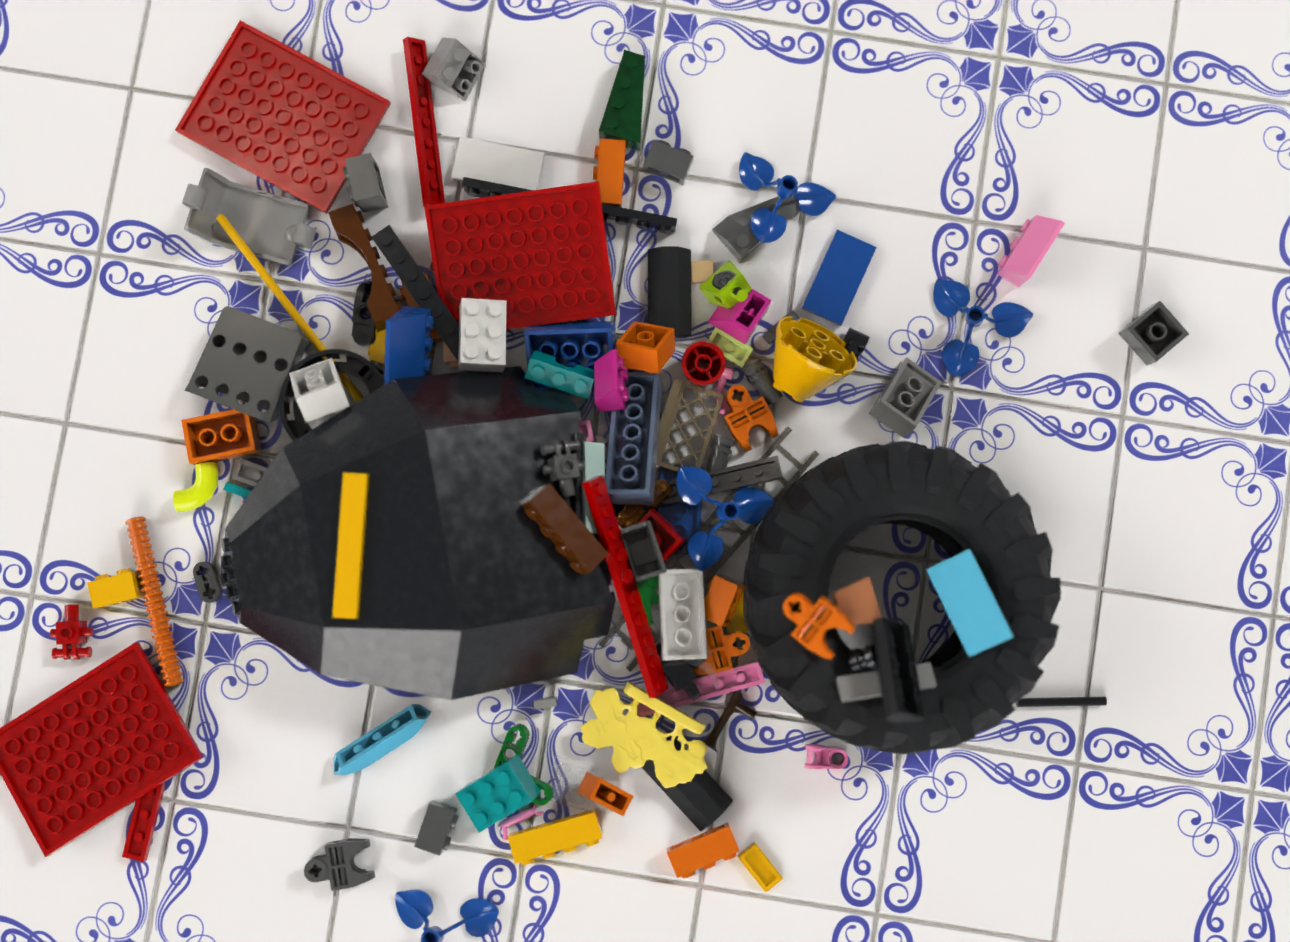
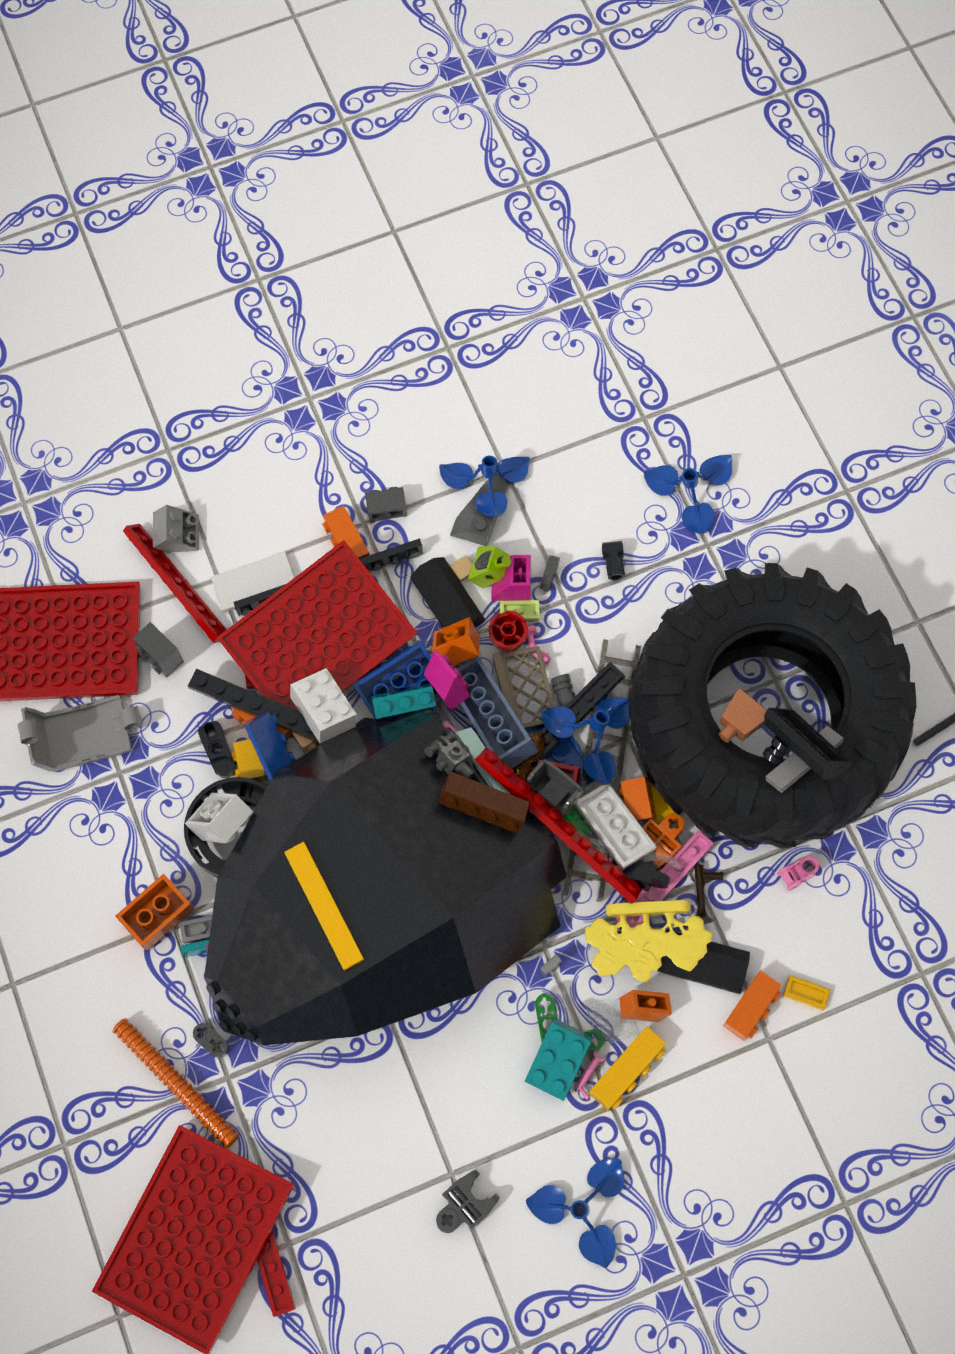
camera: 25 degrees left, 15 degrees down
(71, 635) = (118, 1151): red piece -> none
(115, 589) = (135, 1092): yellow brick -> none
(200, 491) = (162, 966): neon yellow cylinder -> none
(247, 363) = (143, 839): dark grey piece -> none
(283, 299) = (123, 771): yellow piece -> none
(349, 230) = (166, 693): reddish brown arch -> none
(380, 740) = (434, 1080): medium azure brick -> none
(436, 828) = (525, 1123): dark grey brick -> none
(625, 104) = (327, 481): dark green wedge -> none
(761, 418) = (566, 650): orange piece -> none
(762, 381) = (562, 620): dark grey axle -> none
(808, 358) = (586, 581): yellow cone -> none
(815, 638) = (732, 732): orange piece -> none
(839, 277) = (569, 514): blue tile -> none
(905, 398) = (677, 569): light grey slope -> none
(969, 603) = (826, 665): medium azure tile -> none
(1029, 249) = (697, 412): bright pink slope -> none
(1153, 333) = (828, 418): dark grey brick -> none

